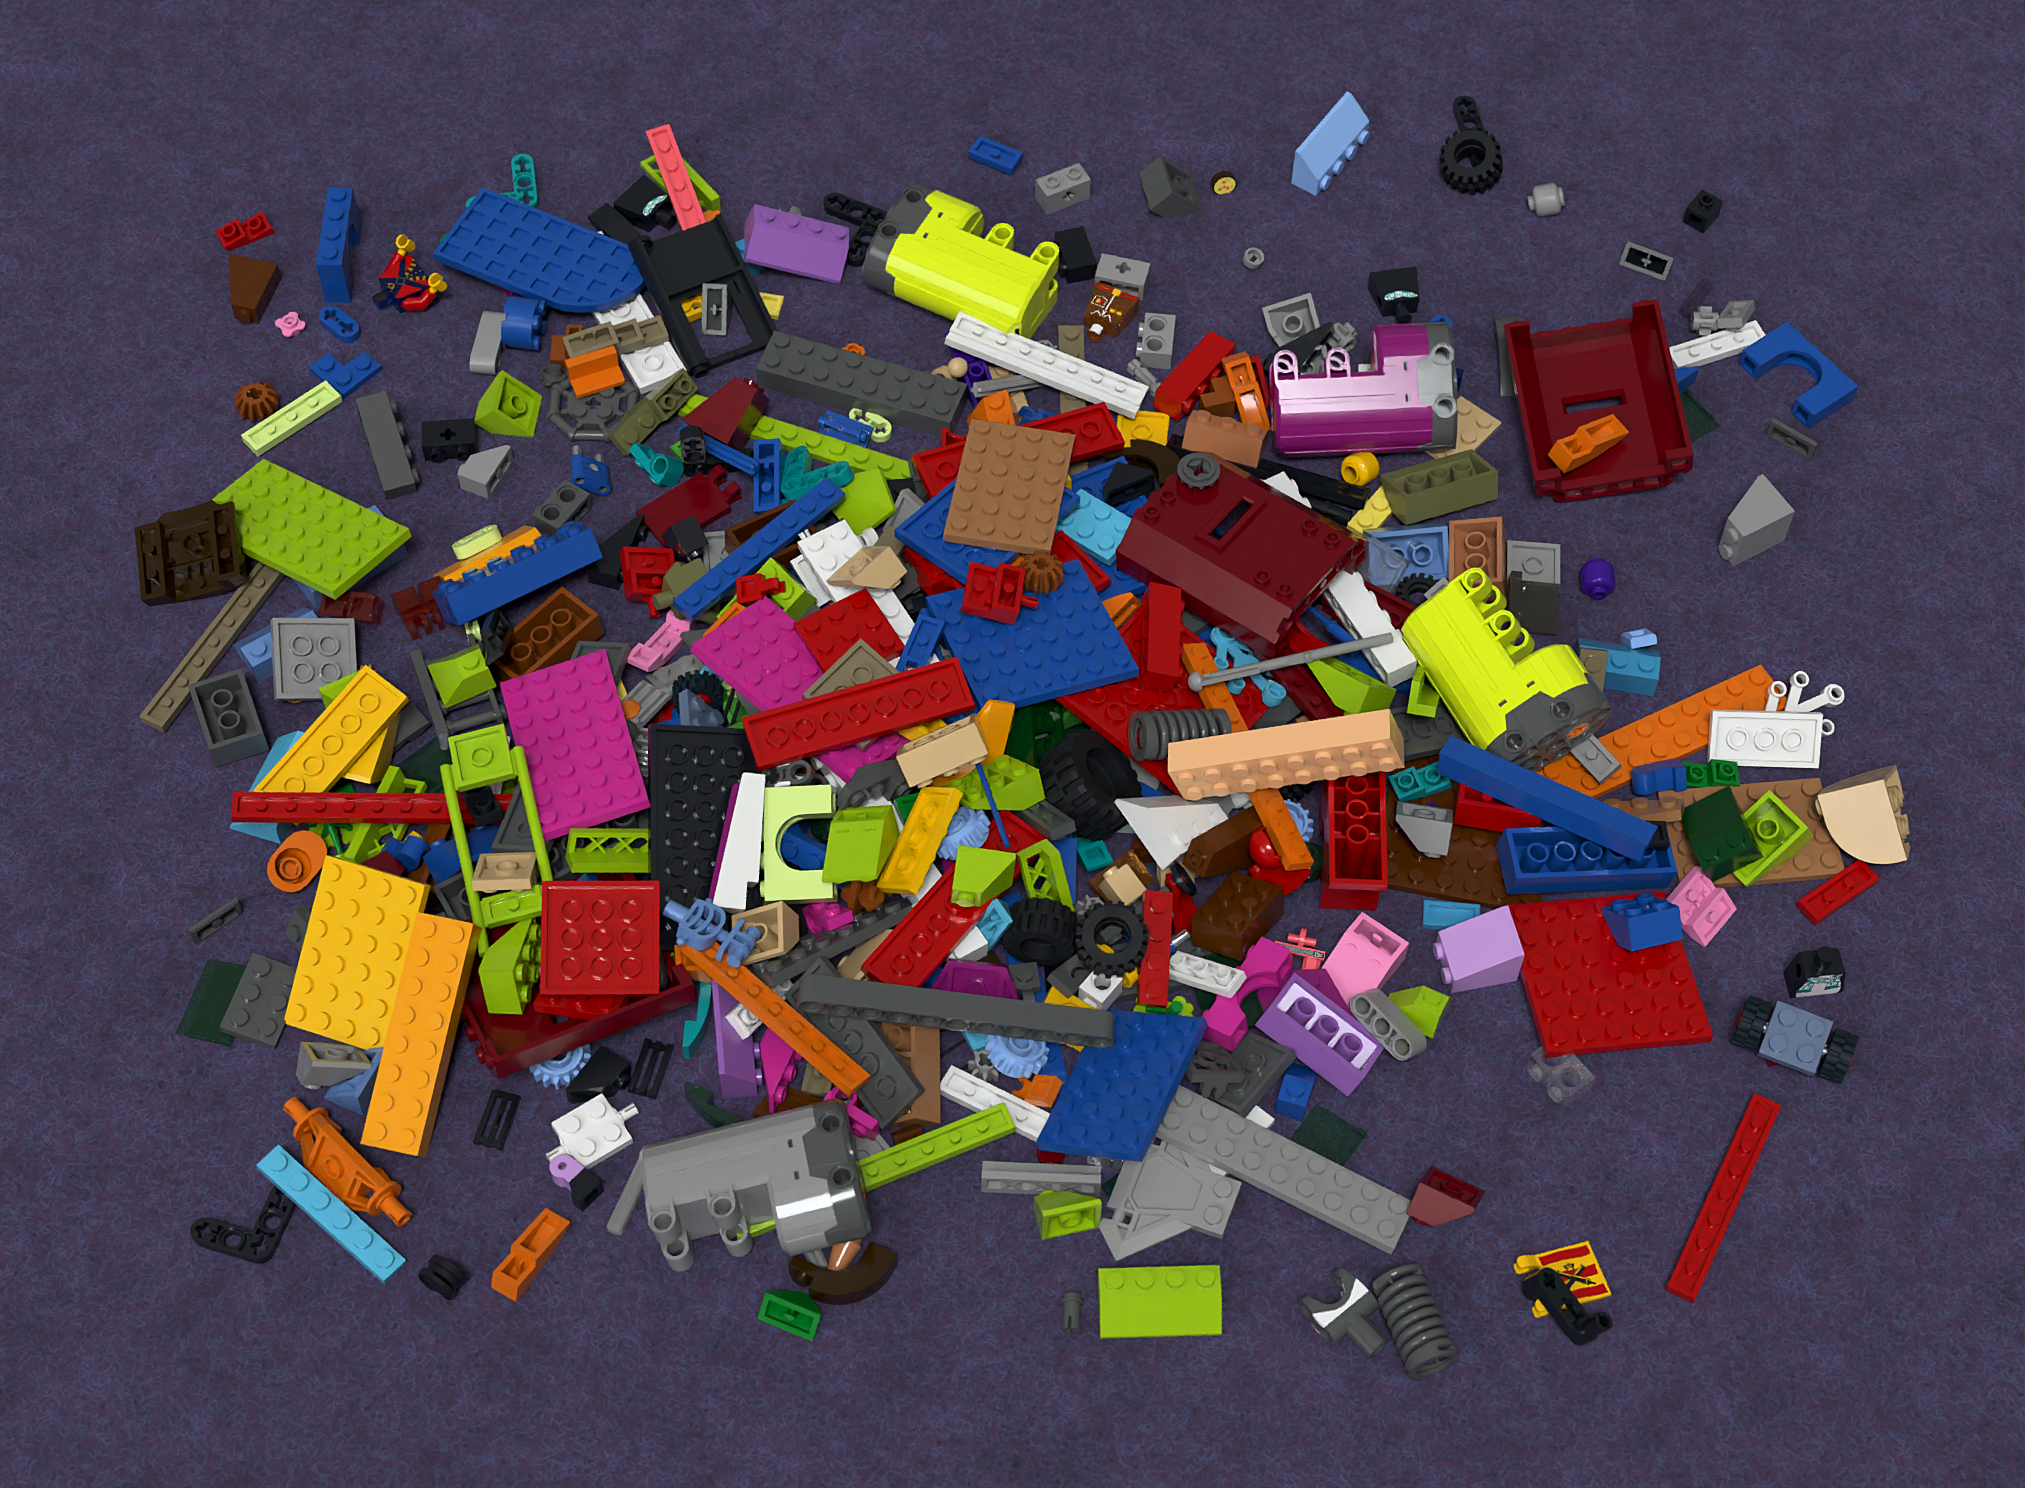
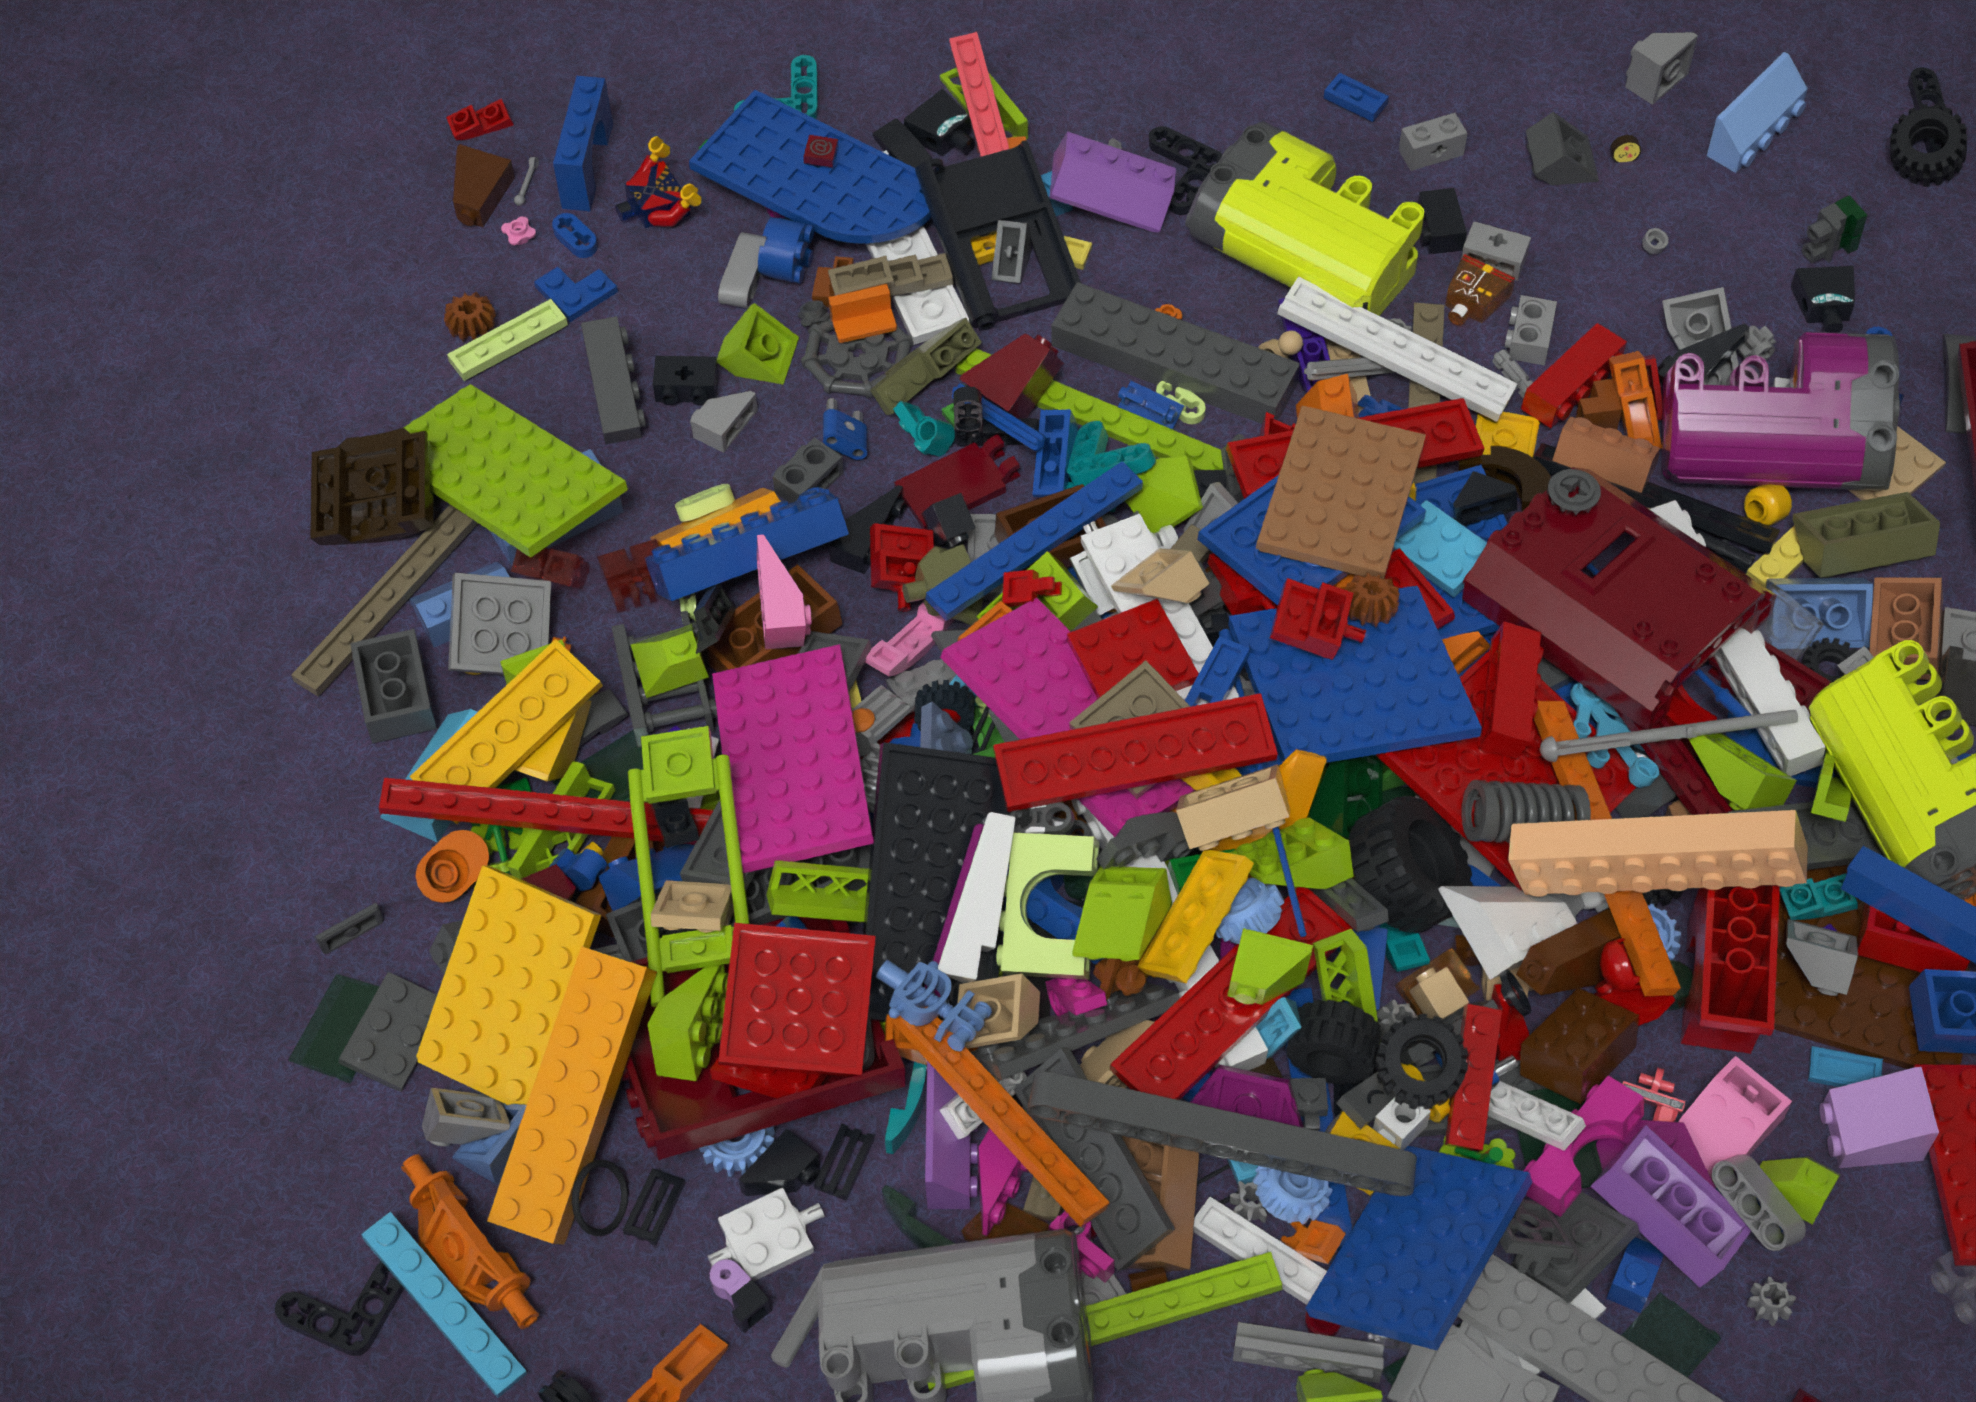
camera: 10 degrees right, 0 degrees up
(288, 296) = (533, 164): none -> light grey hinge
(439, 1093) = (575, 1198): none -> black tyre
(545, 236) = (820, 150): none -> dark red tile
(552, 617) = (782, 605): none -> bright pink slope
(1246, 108) = (1659, 64): none -> light grey slope
(1397, 1102) = (1764, 1305): none -> light grey gear
(1400, 236) = (1836, 228): none -> dark grey hips

